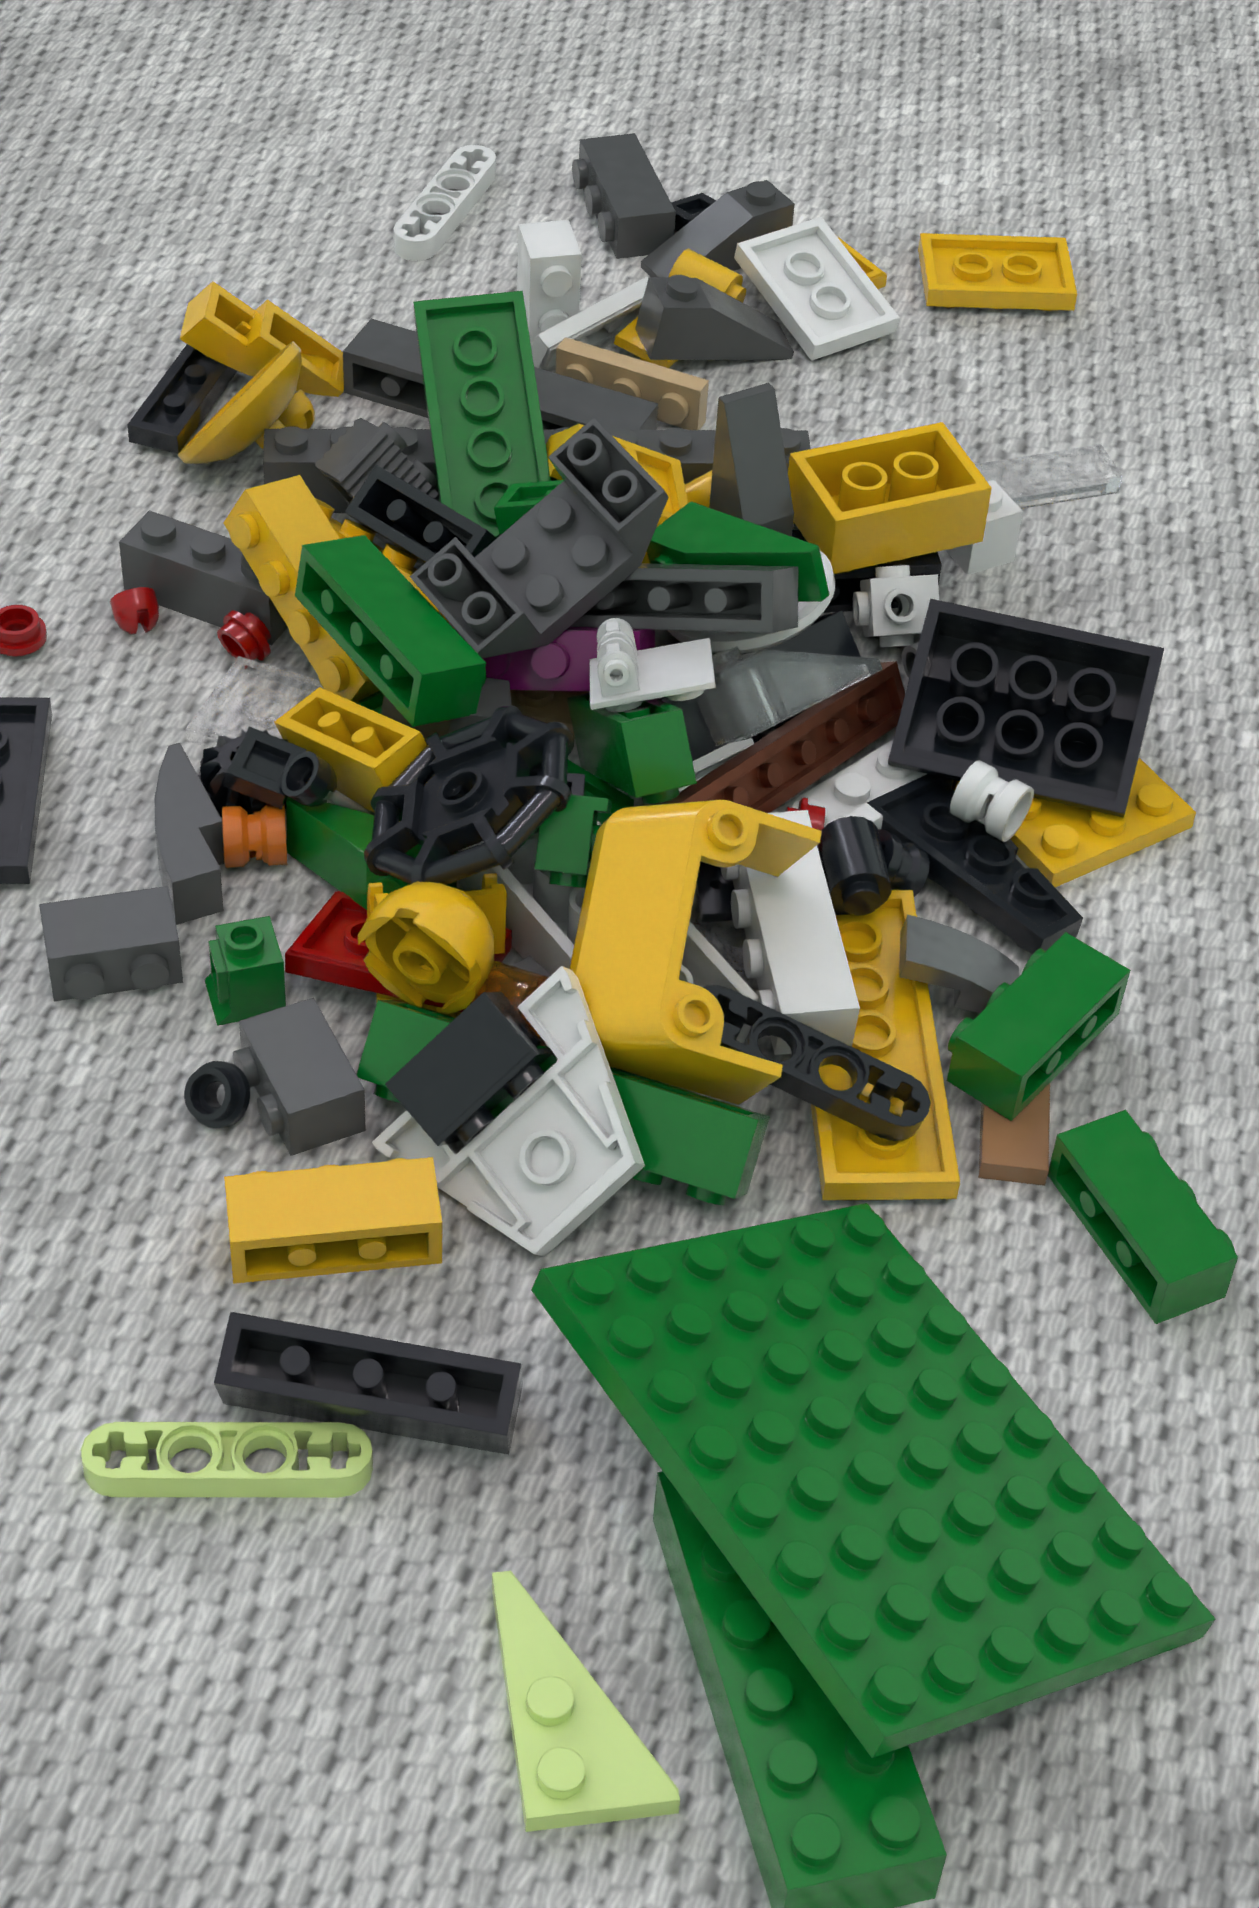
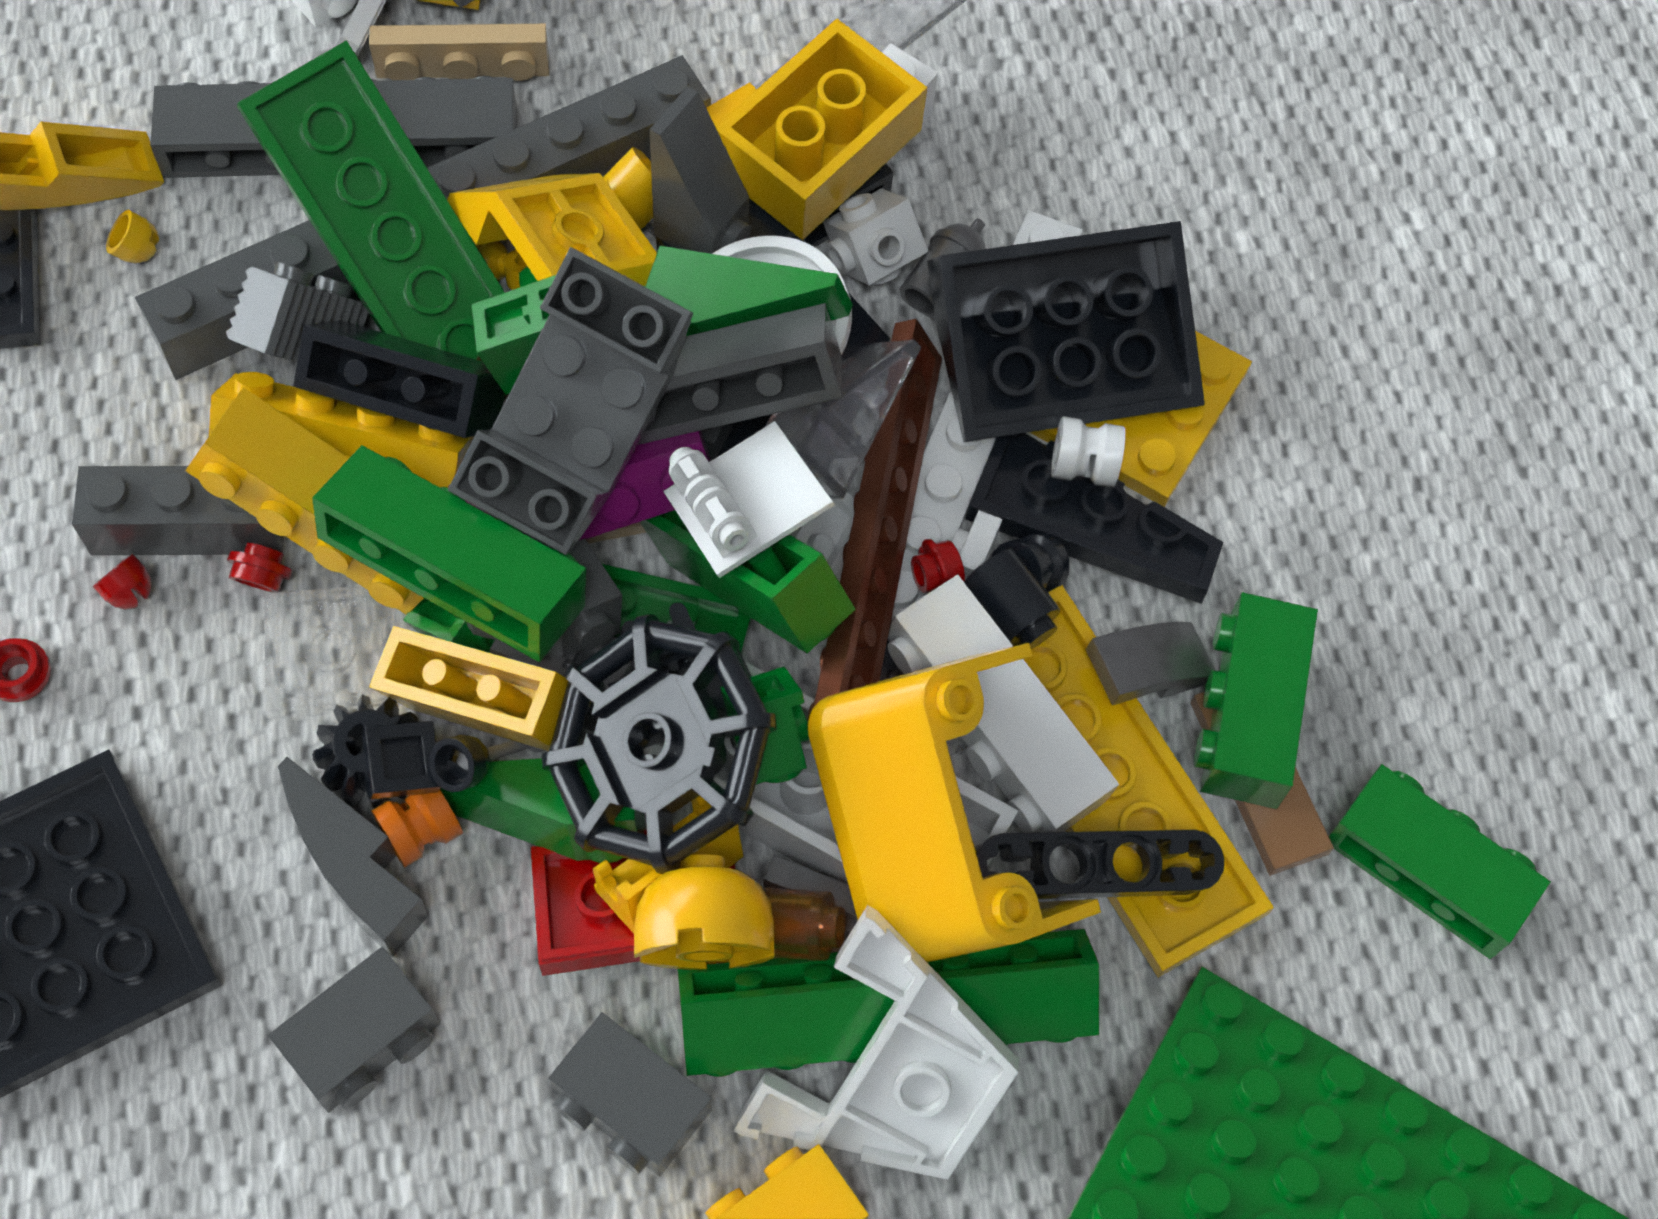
camera: 30 degrees left, 20 degrees up
(202, 1089) = (560, 1170): black plate -> none
(245, 970) = (507, 999): green window -> none
(248, 411) = (93, 274): yellow dish -> none
(470, 1070) = (812, 1044): black hinge -> none

